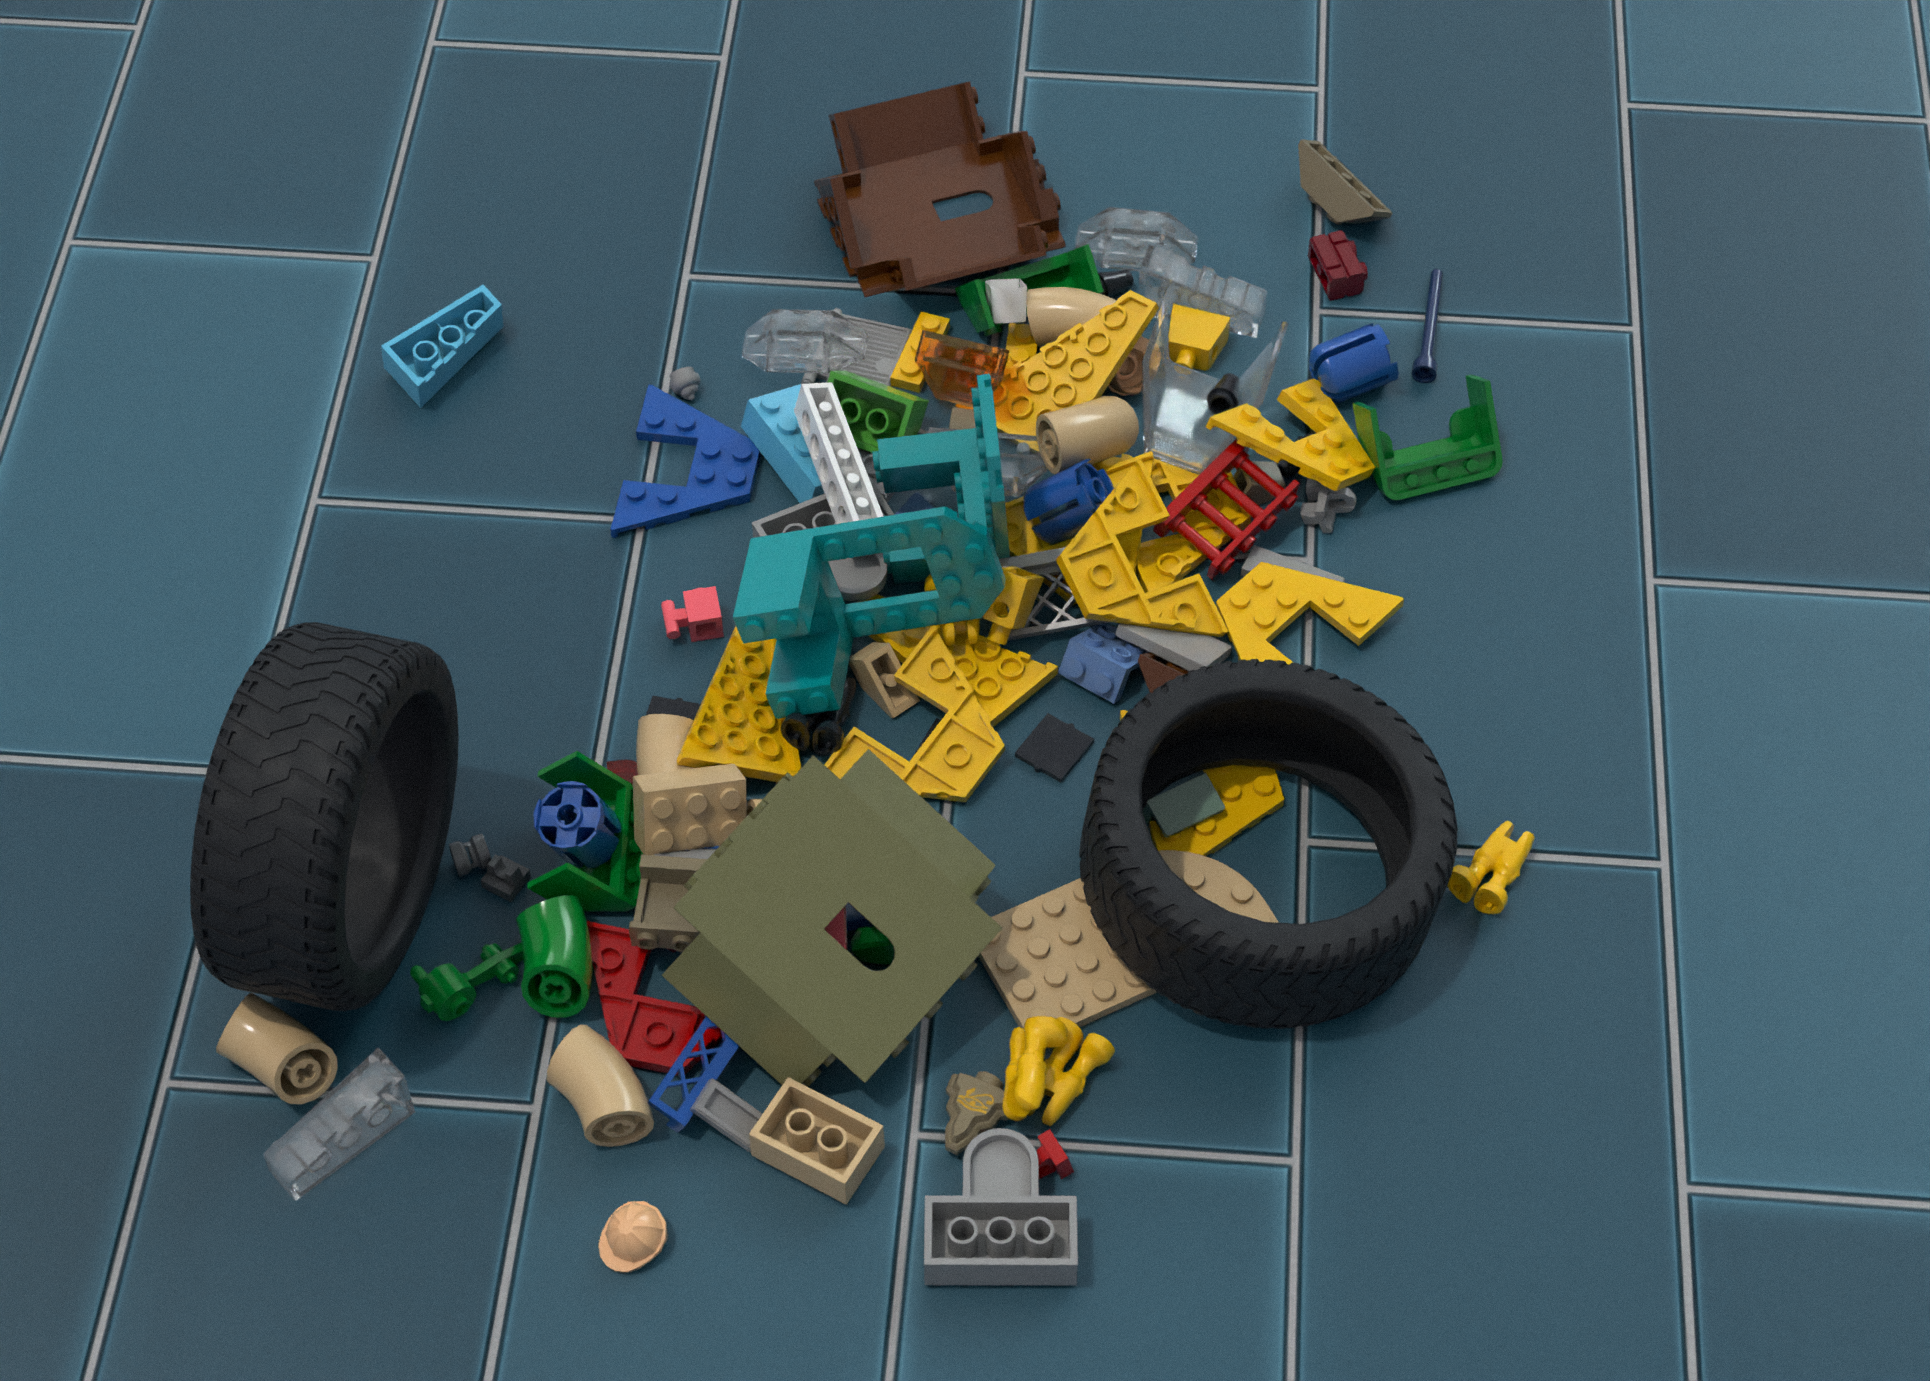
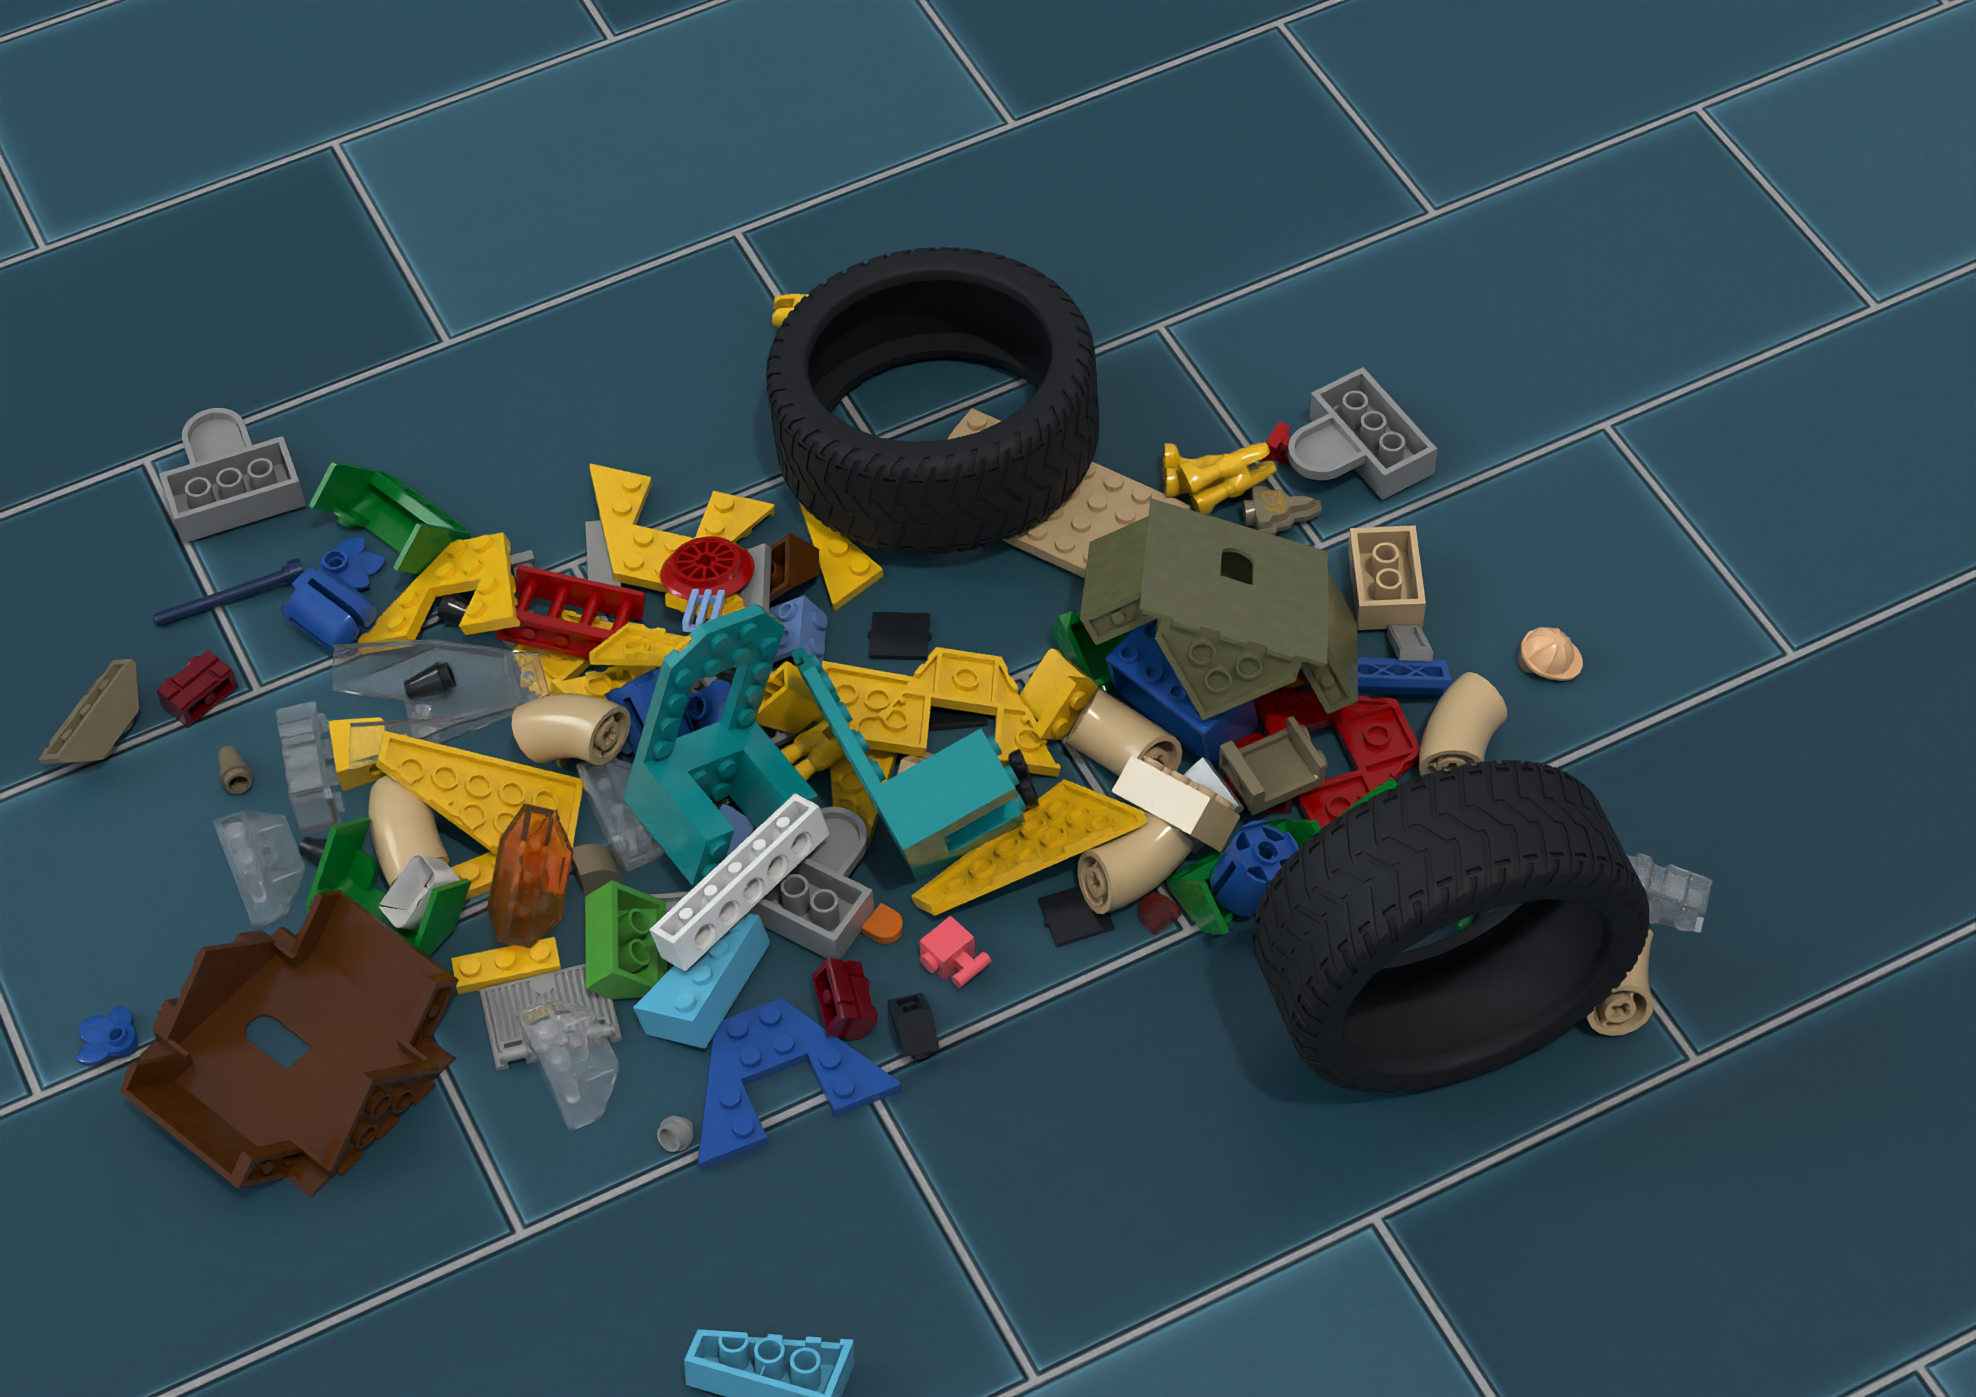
camera: 120 degrees left, 0 degrees up
(654, 558) = (914, 1025): none -> black slope
(708, 523) = (844, 999): none -> dark red brick
(1040, 117) = (107, 1036): none -> blue plate
(1047, 541) = (708, 705): none -> blue plate
(1146, 567) = (706, 599): none -> light blue tile
(1232, 628) = (707, 564): none -> red piece
(1235, 260) = (234, 772): none -> dark tan cone
(1410, 409) = (353, 563): none -> blue plate
(1554, 346) = (228, 477): none -> light grey brick

